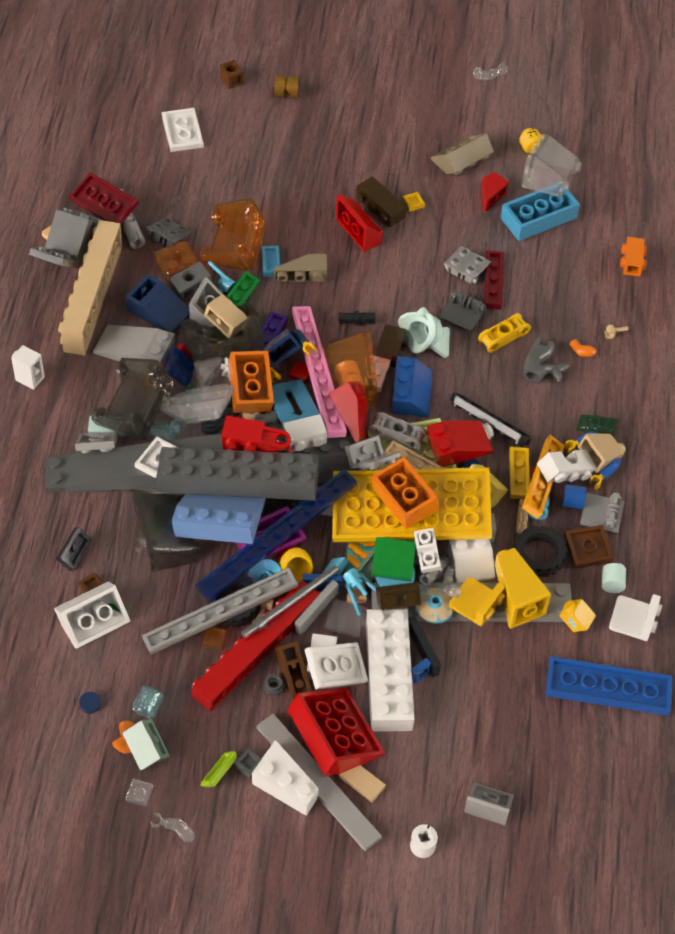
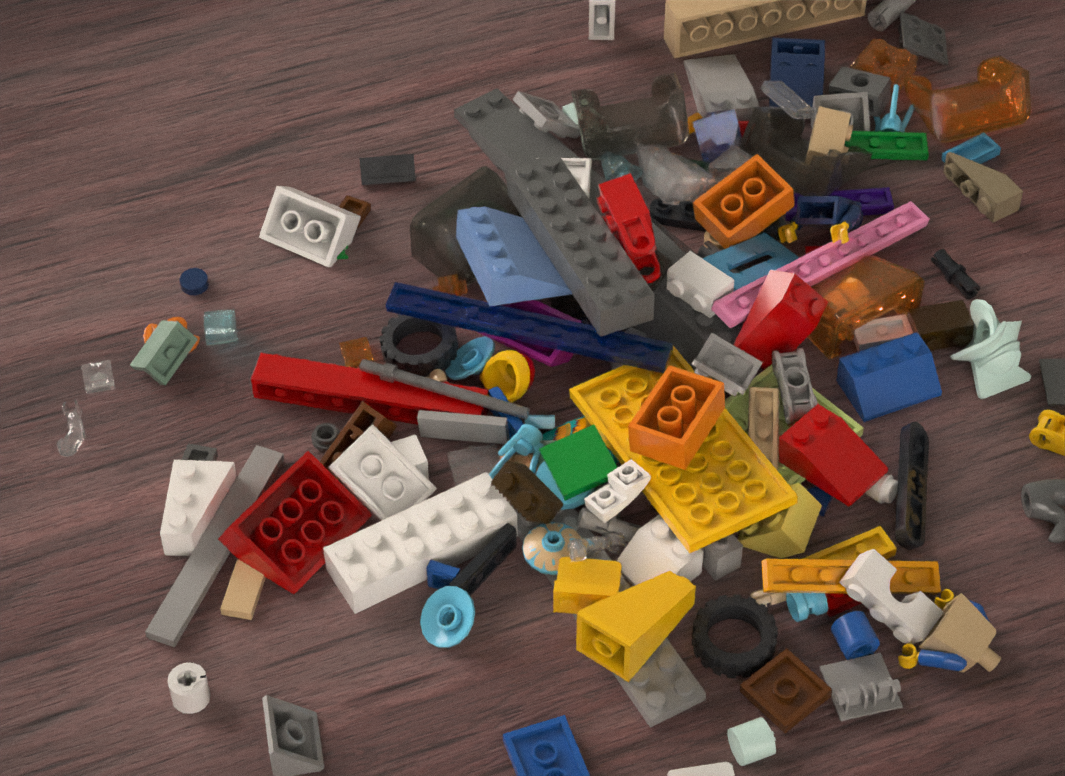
camera: 65 degrees right, 5 degrees down
(179, 317) = (787, 99): none -> clear tile
(203, 563) = (451, 285): none -> clear orange gear
(219, 611) = (390, 333): light grey tile -> none
(219, 769) = (171, 436): lime tile -> none
(455, 691) = (438, 616): none -> medium azure dish
(577, 615) = (652, 717): yellow brick -> none
(605, 422) = (1010, 639): clear green slope -> none

